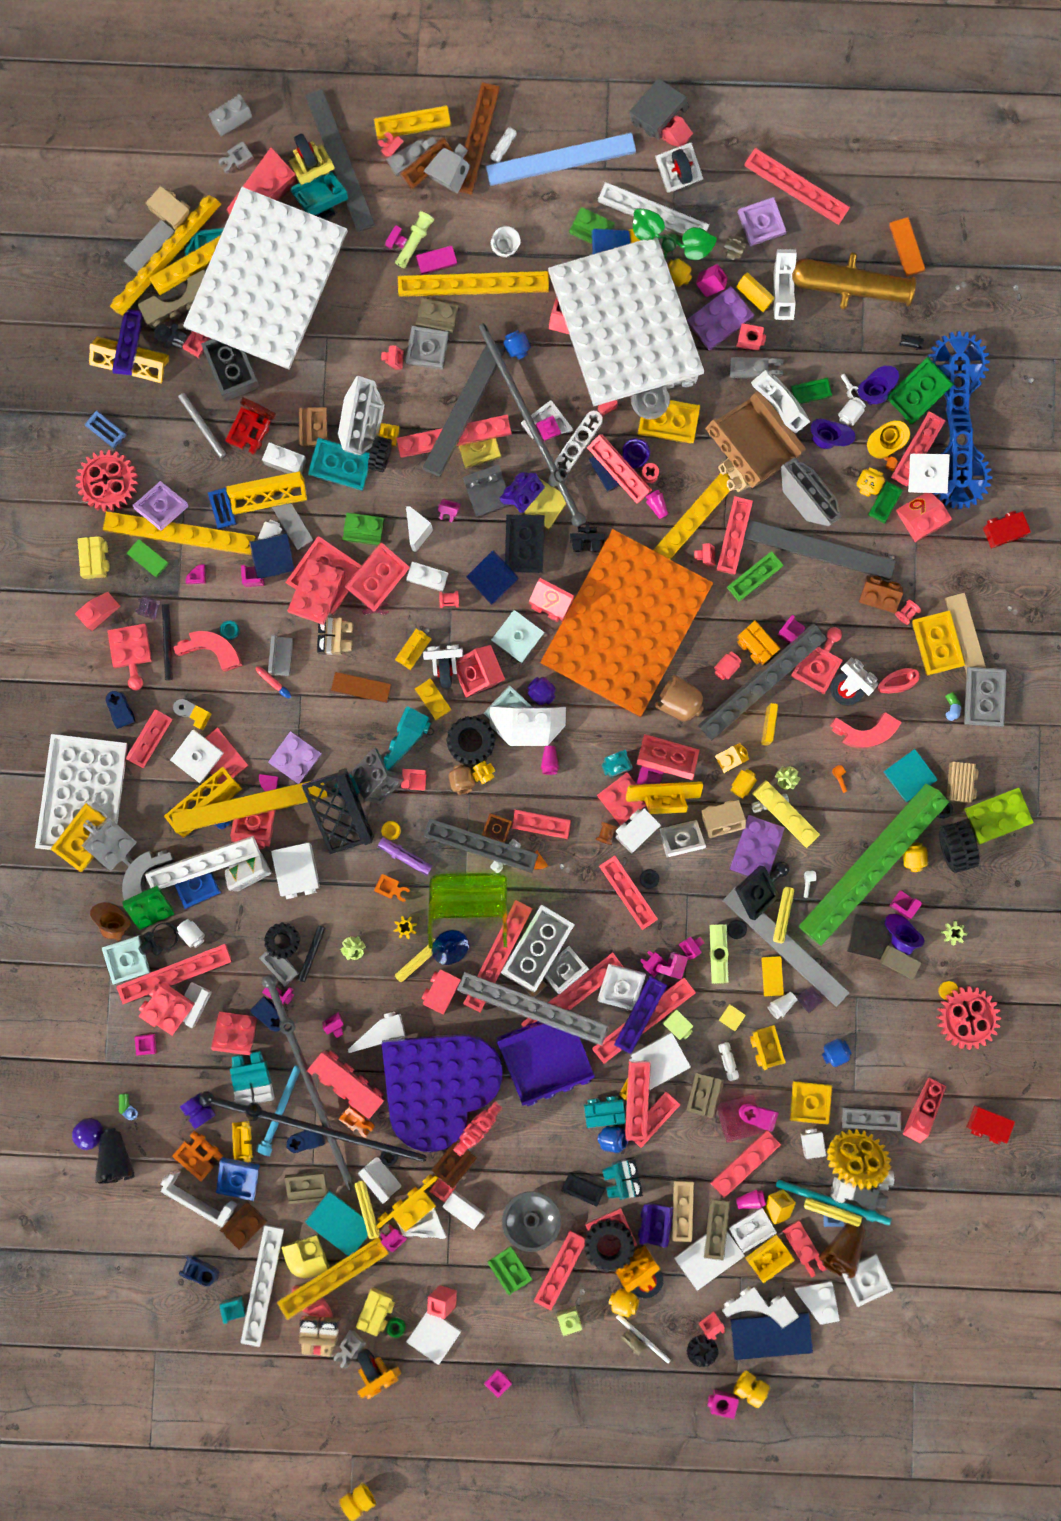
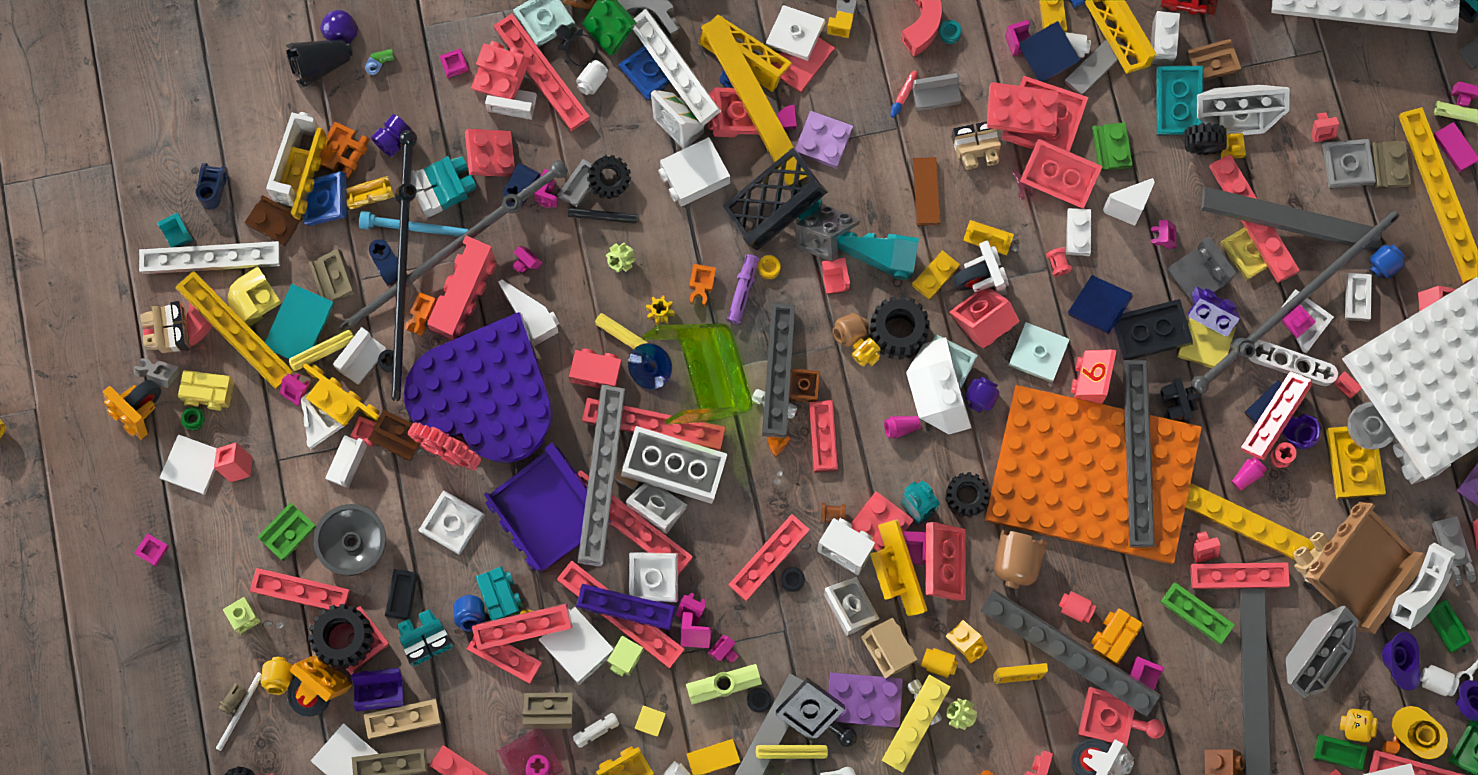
camera: 70 degrees right, 10 degrees down
(210, 1195) = (301, 169): none -> yellow bracket
(535, 1136) = (451, 522): none -> white tile
(539, 375) = (1358, 297): none -> white plate
(618, 736) = (963, 508): none -> black tyre
(622, 584) = (1138, 454): none -> dark grey tile

